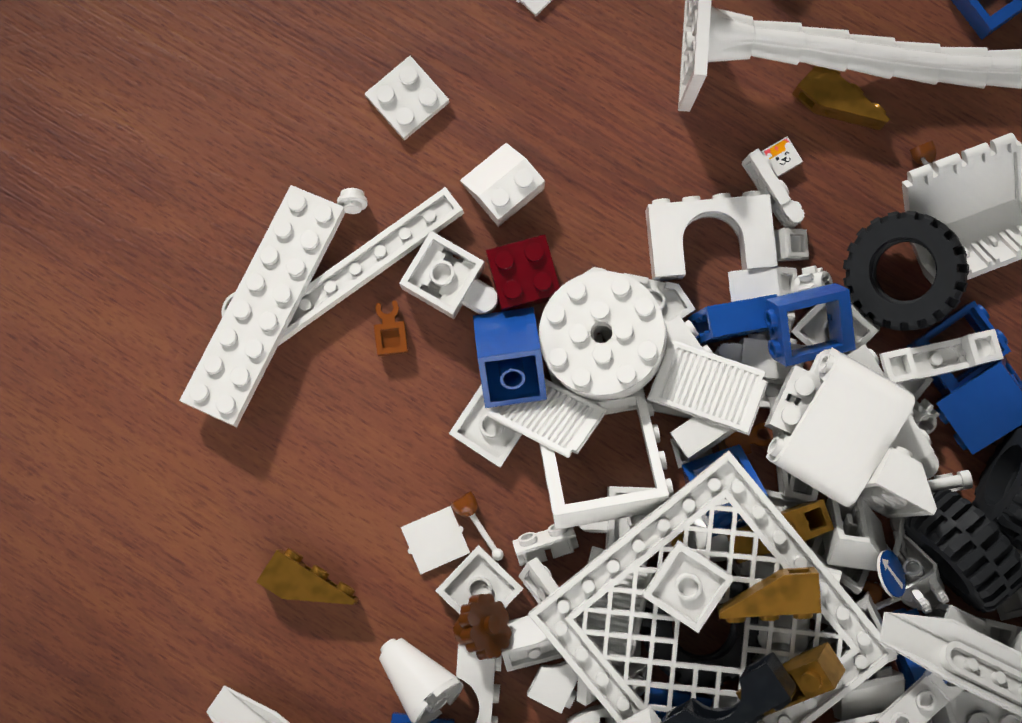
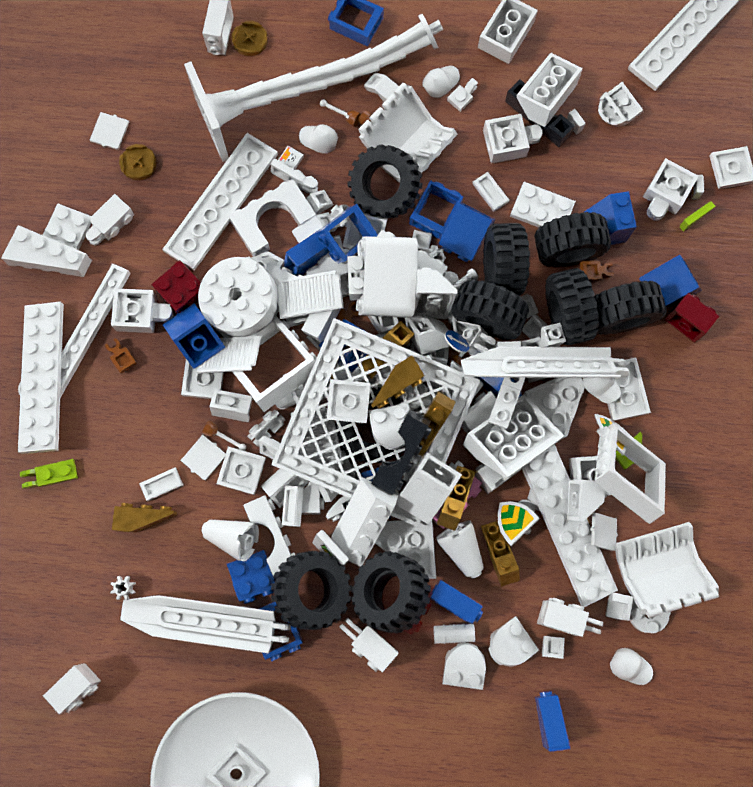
camera: 30 degrees left, 5 degrees down
(211, 451) = (51, 474): none -> lime hinge
(224, 668) = (129, 585): none -> white gear
(350, 118) = (40, 252): none -> white wedge
(352, 200) = (64, 296): white plate -> none
(357, 548) = (161, 484): none -> white tile
(472, 118) = (109, 220): none -> white hinge
(483, 627) = (251, 486): reddish brown plant -> none
(503, 183) = (145, 246): white slope -> none
(512, 487) = (231, 405): none -> white panel
(527, 684) = (292, 506): none -> white tile
(554, 50) = (137, 162): none -> pearl gold tile
(646, 171) = (219, 201): none -> white plate
(727, 652) = (386, 423): none -> white slope
(833, 97) = (304, 113): pearl gold slope -> none
(838, 147) = (319, 138): none -> white piece
(903, 139) = (351, 117): none -> hinge
(941, 357) = (428, 217): white slope -> none
(975, 116) = (381, 85): none -> white slope

